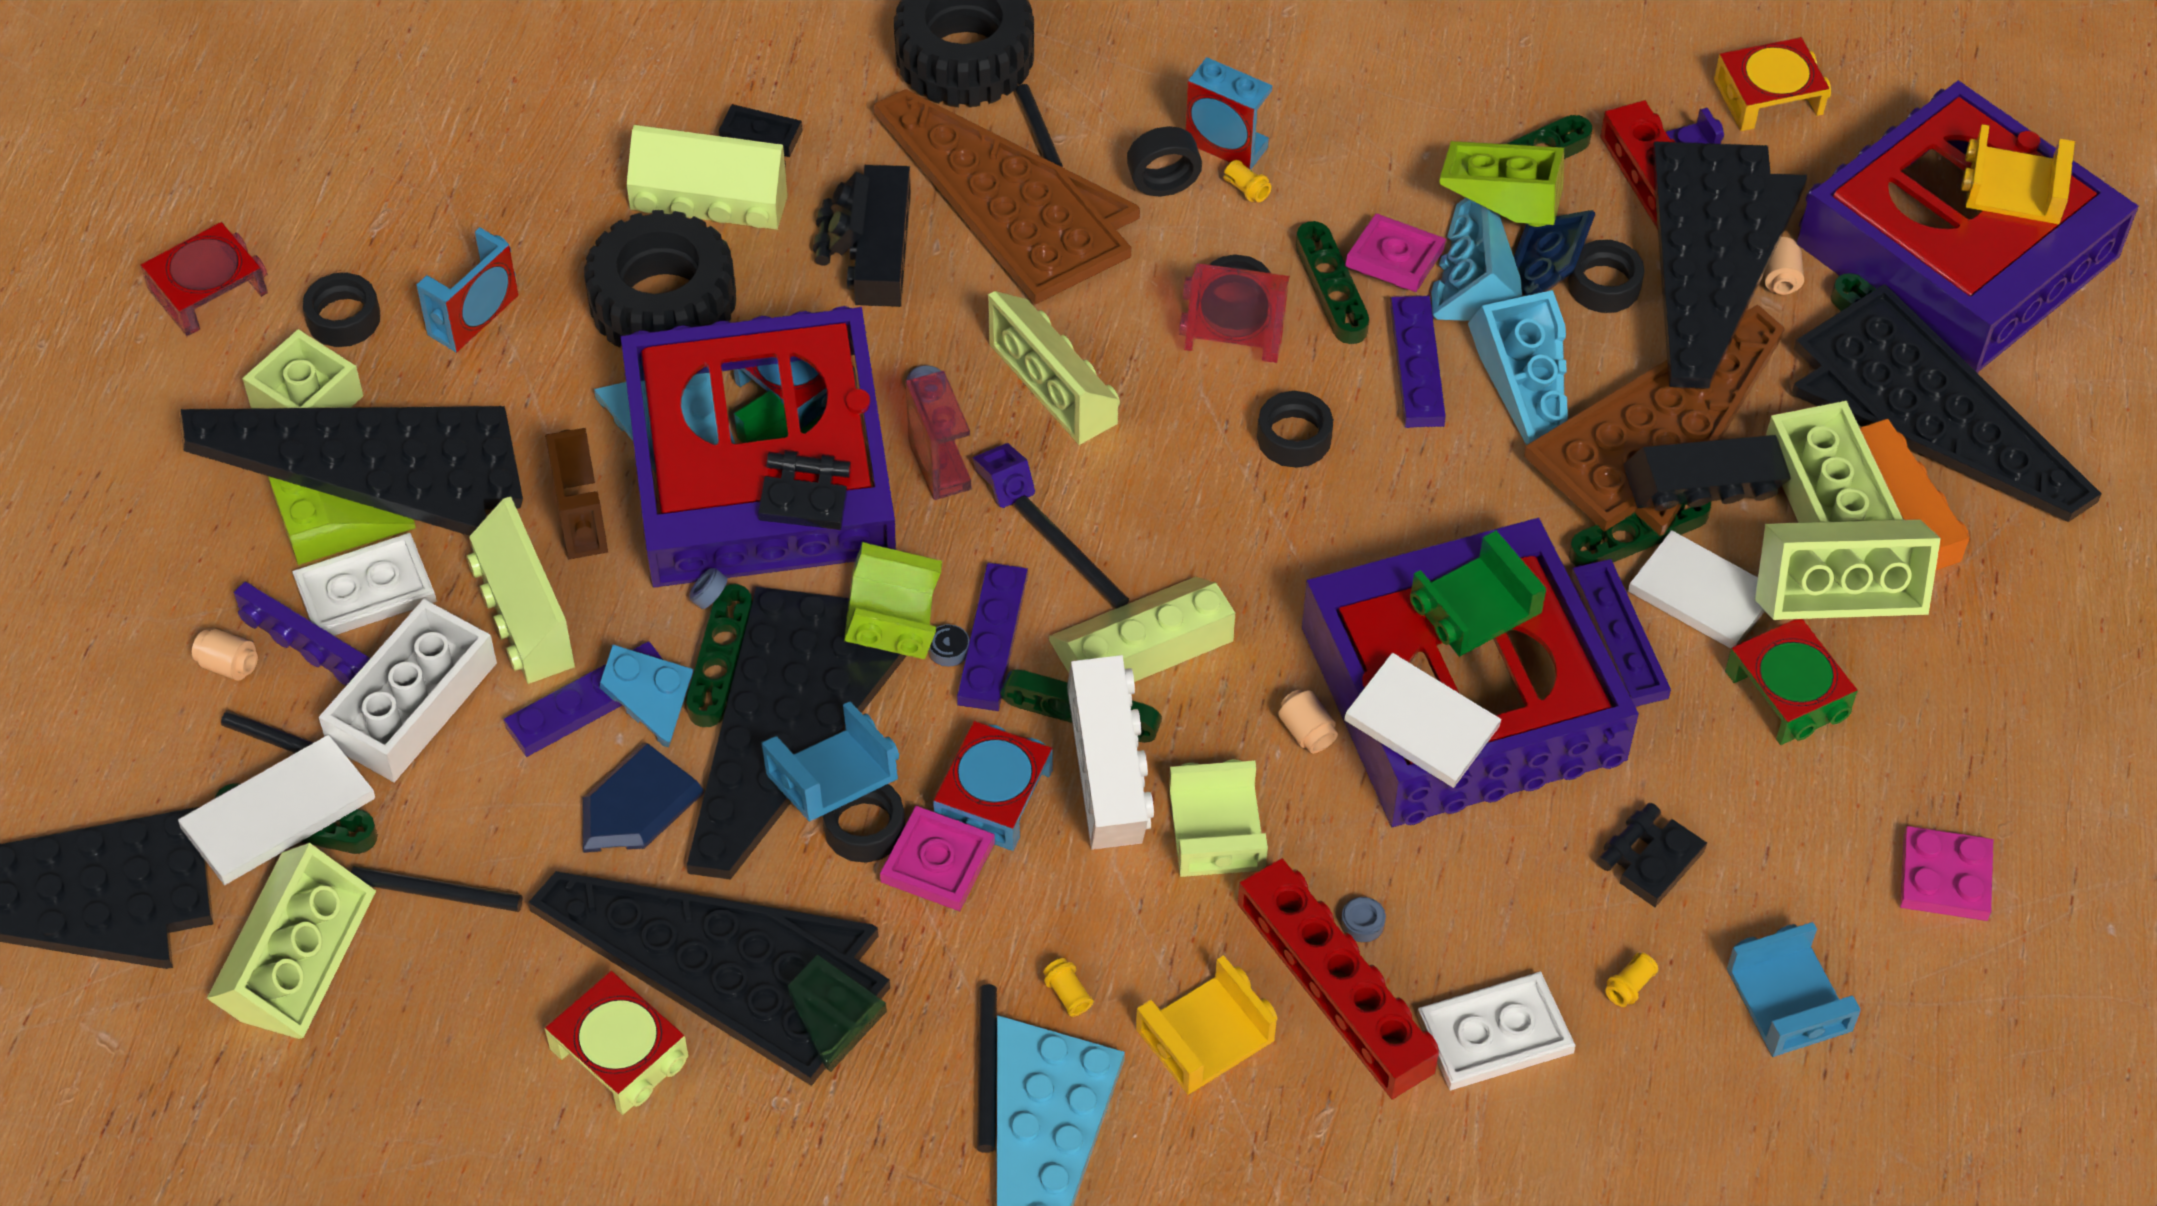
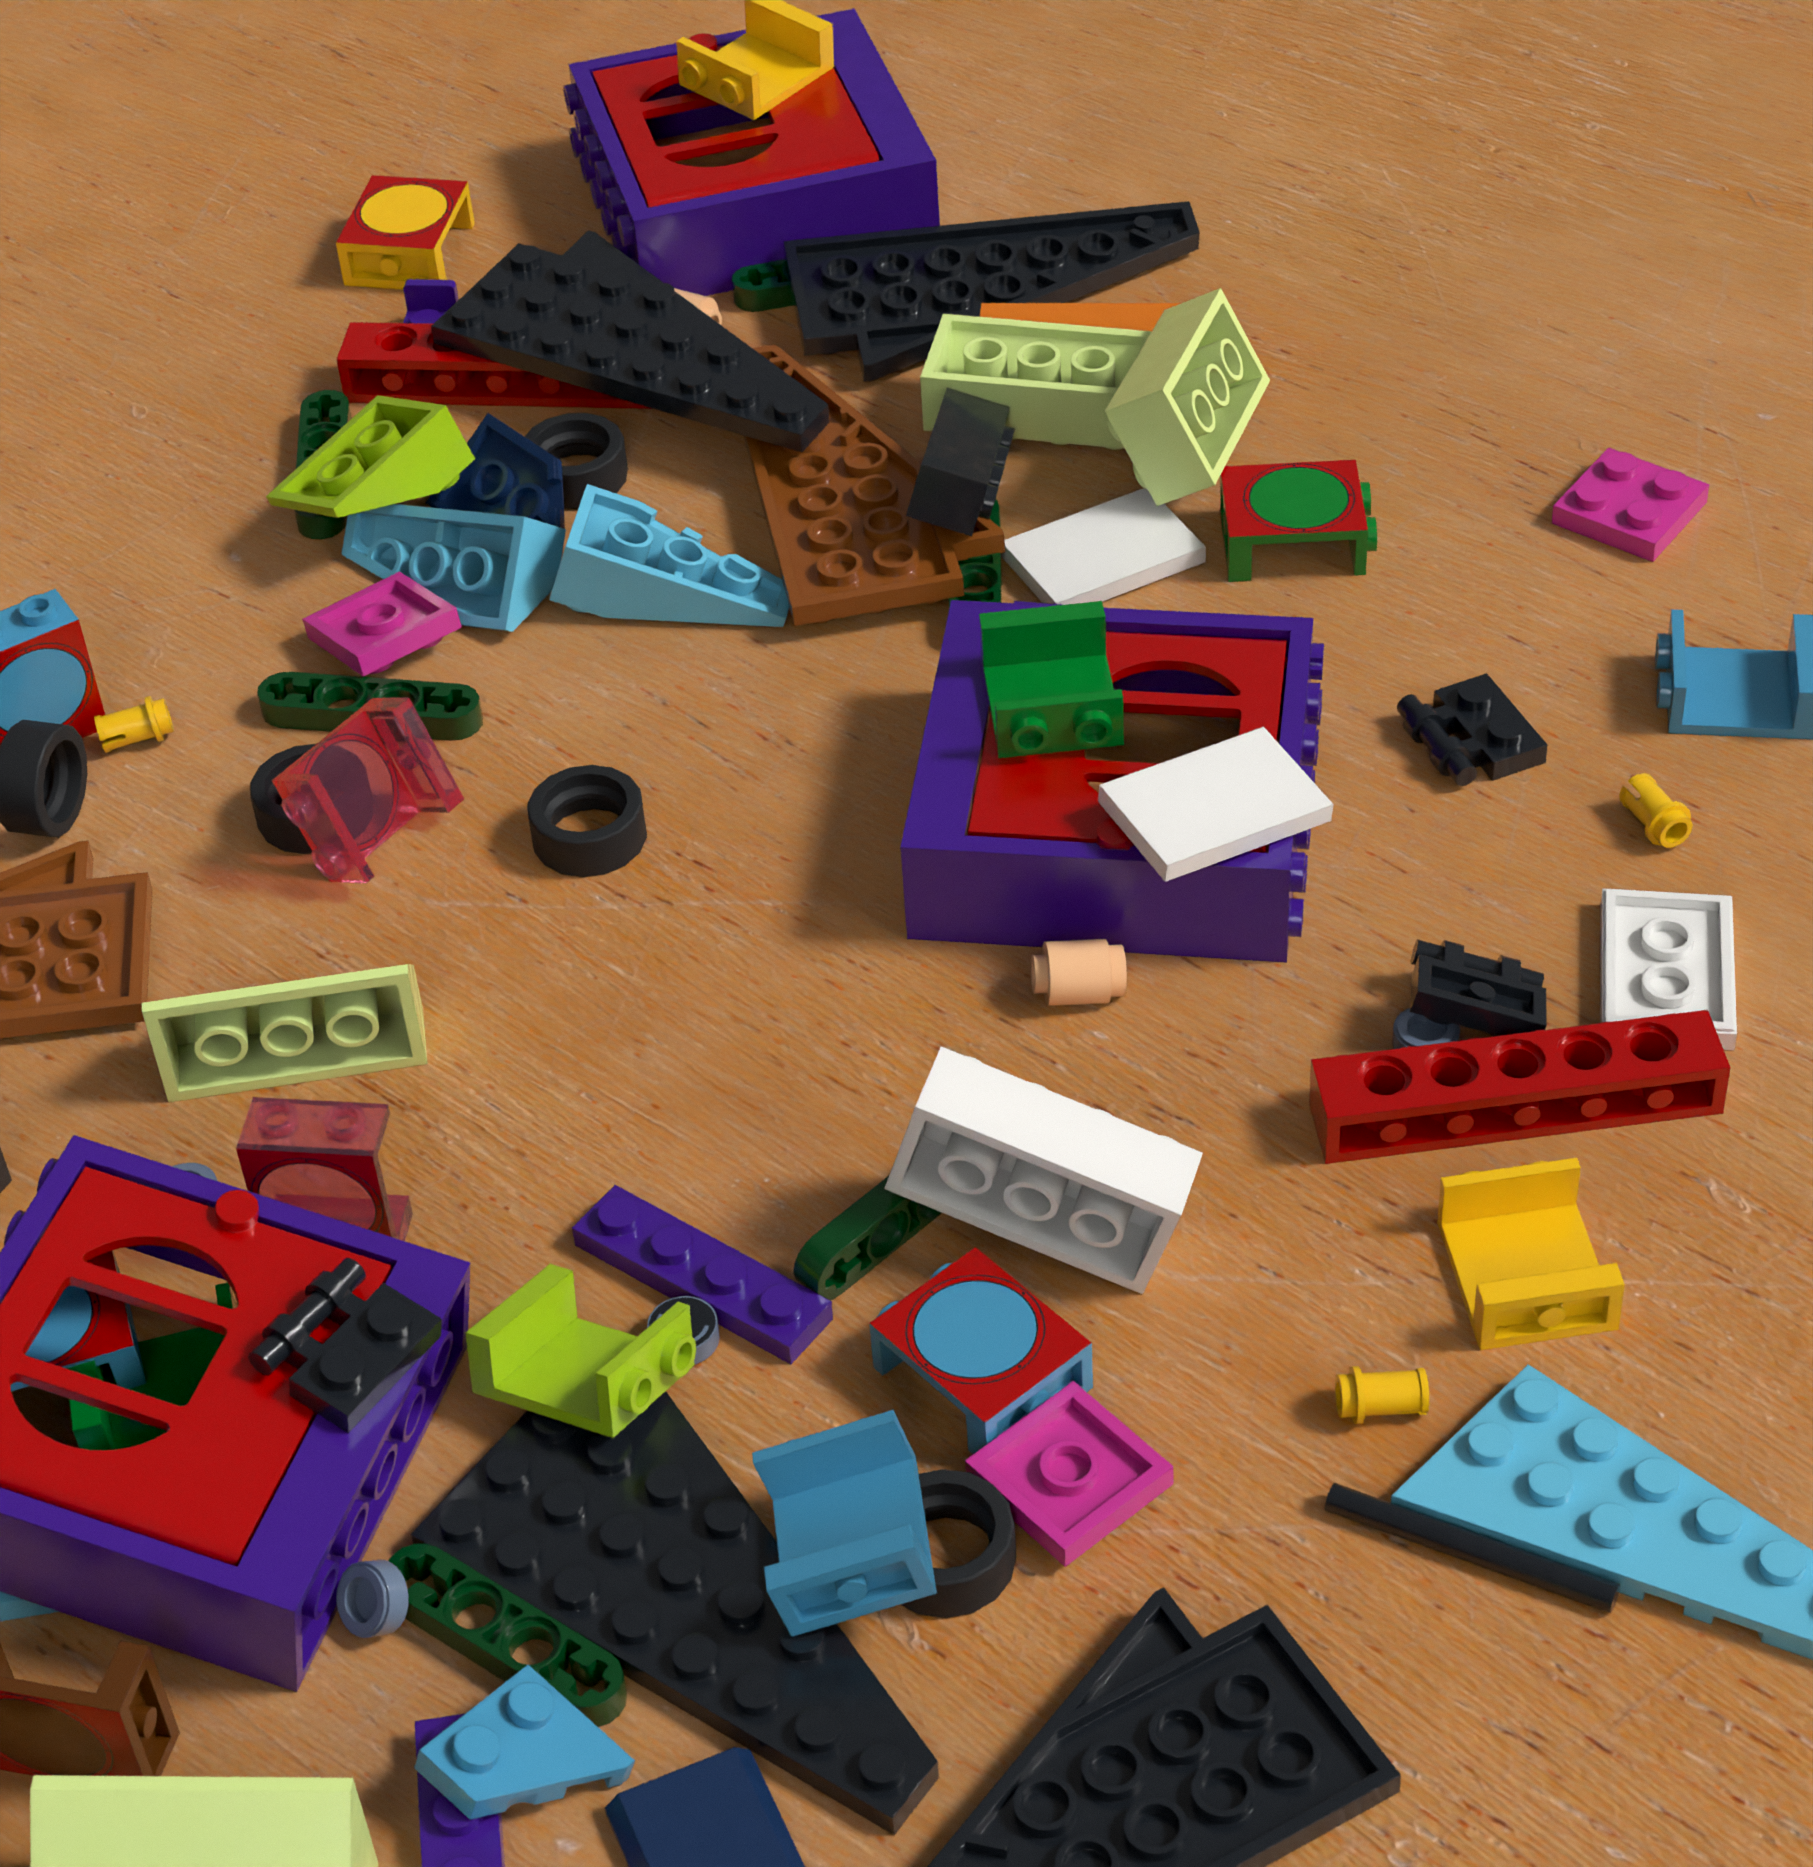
camera: 60 degrees left, 10 degrees down
(834, 1009) = (1305, 1687): clear green wing -> none
(1006, 472) = (429, 1144): dark purple bracket -> none
(1071, 552) = (614, 1132): black bar -> none
(1154, 629) = (816, 1093): yellowish green slope -> none
(1216, 818) = (1223, 1125): yellowish green panel -> none
(1391, 931) = (1476, 990): none -> black plate
(1417, 362) = (563, 673): dark purple plate -> none

